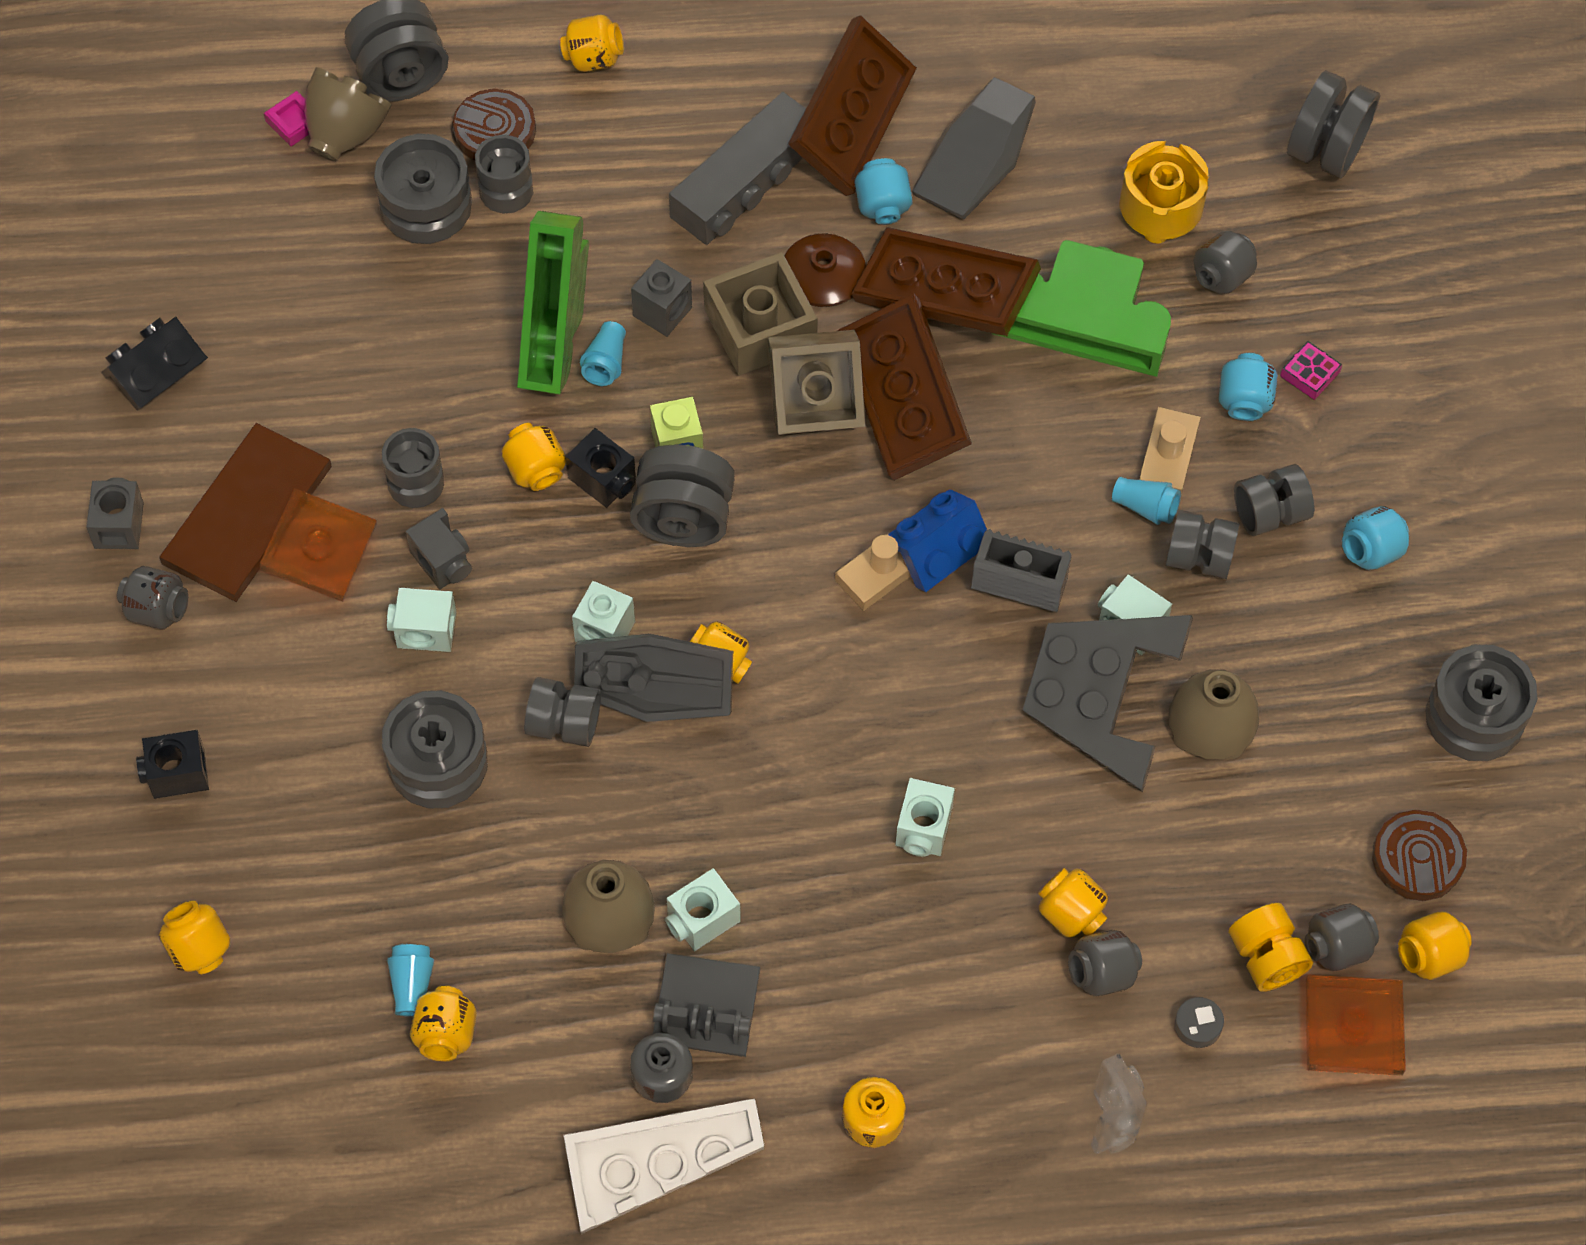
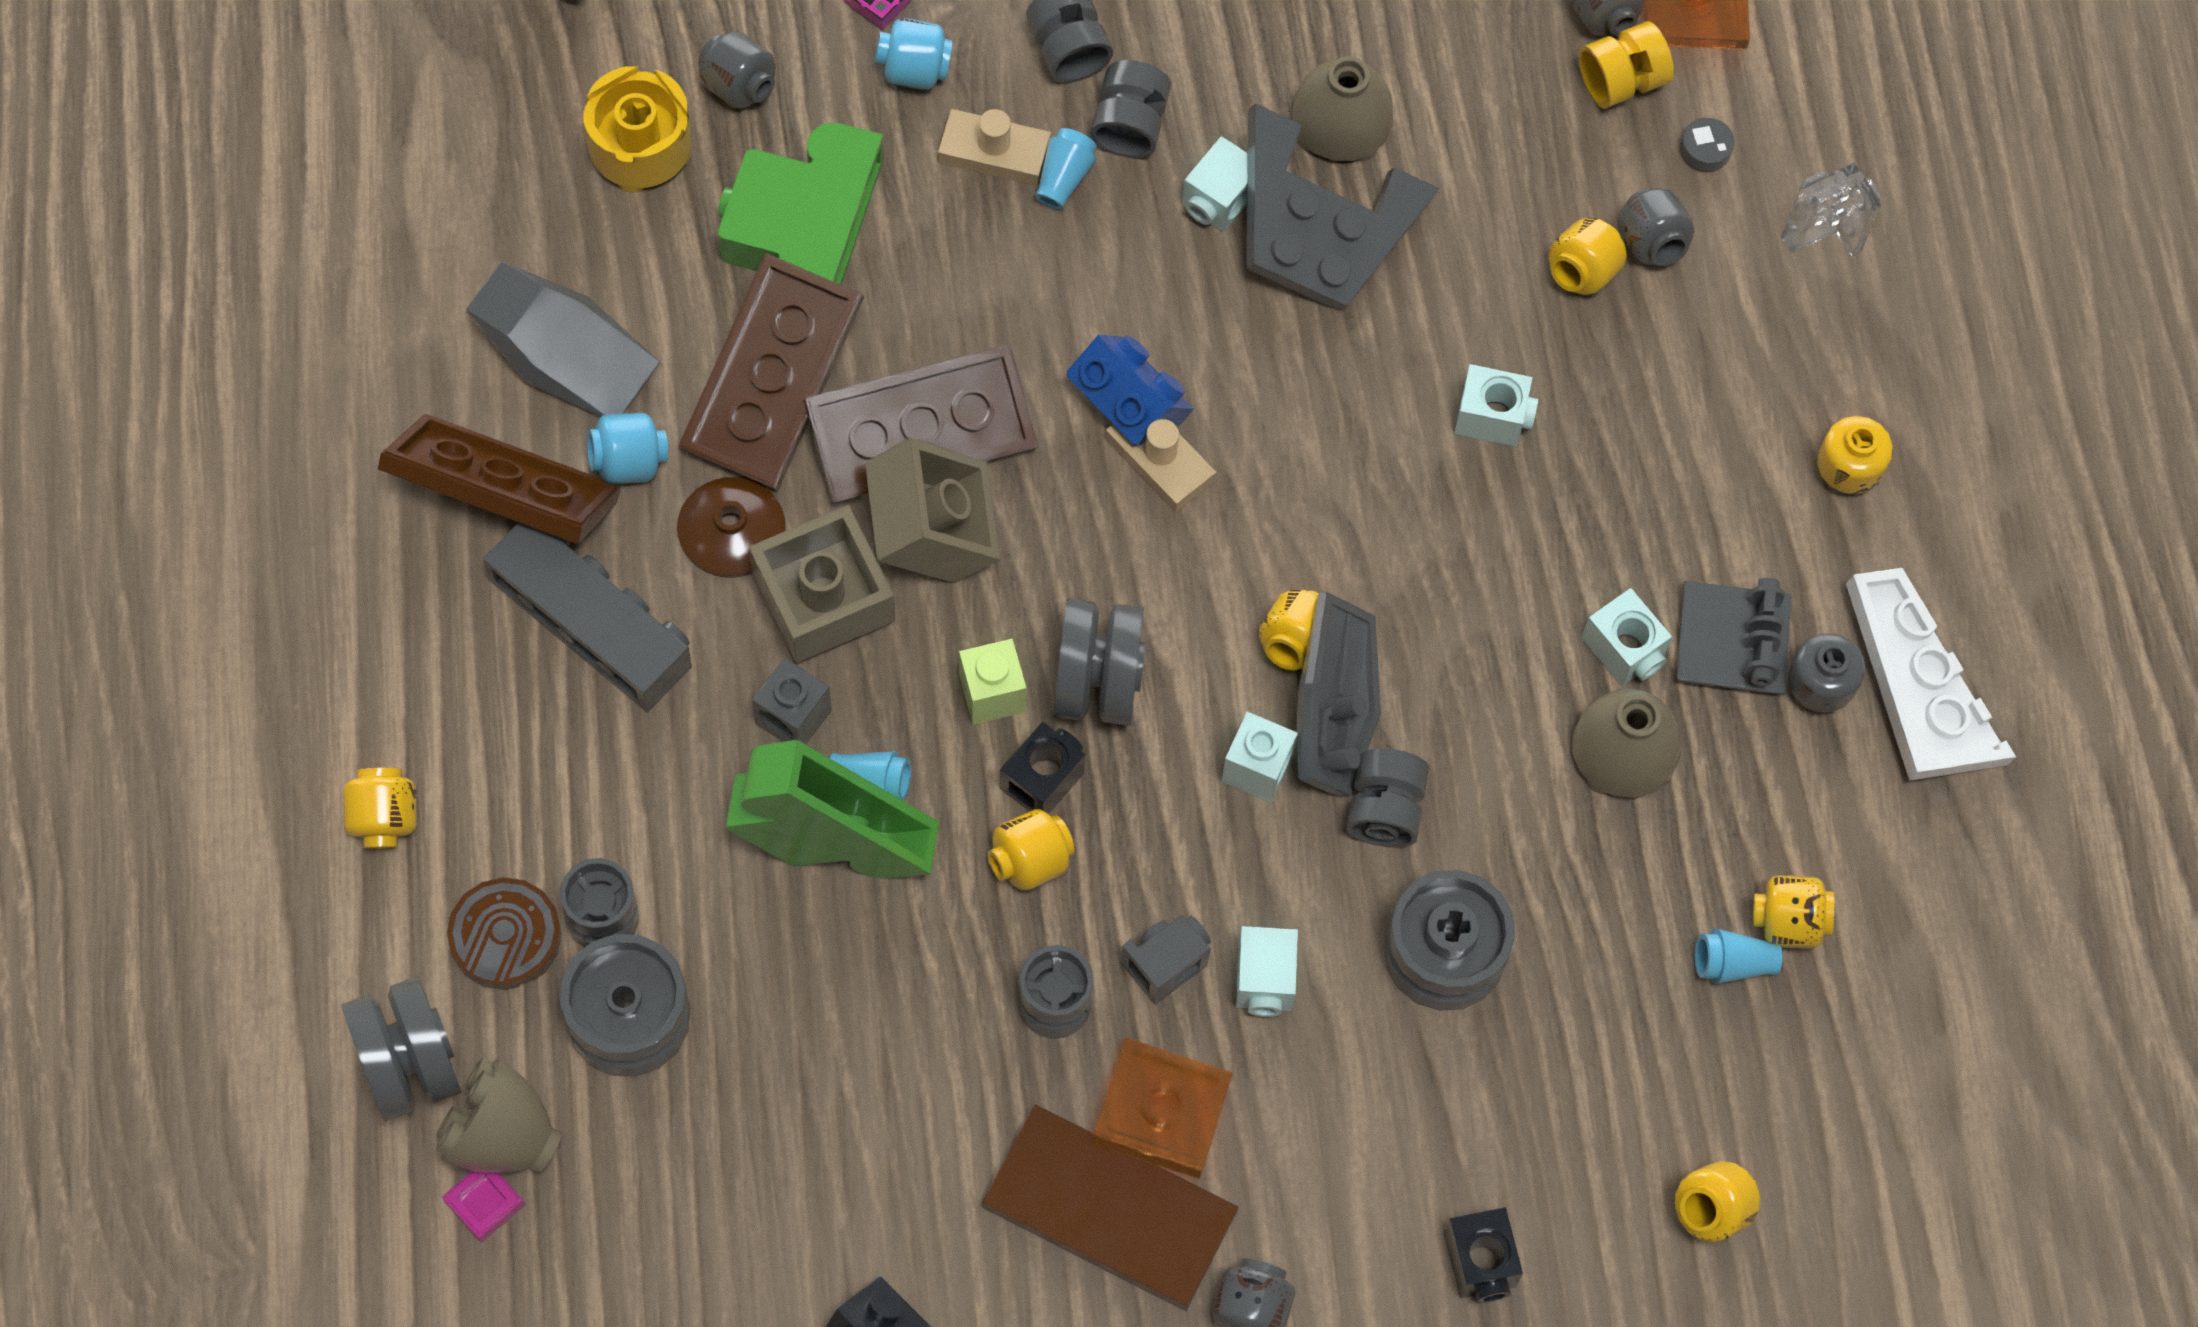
camera: 95 degrees left, 5 degrees up
(1021, 570) = (1178, 294): dark grey brick -> none

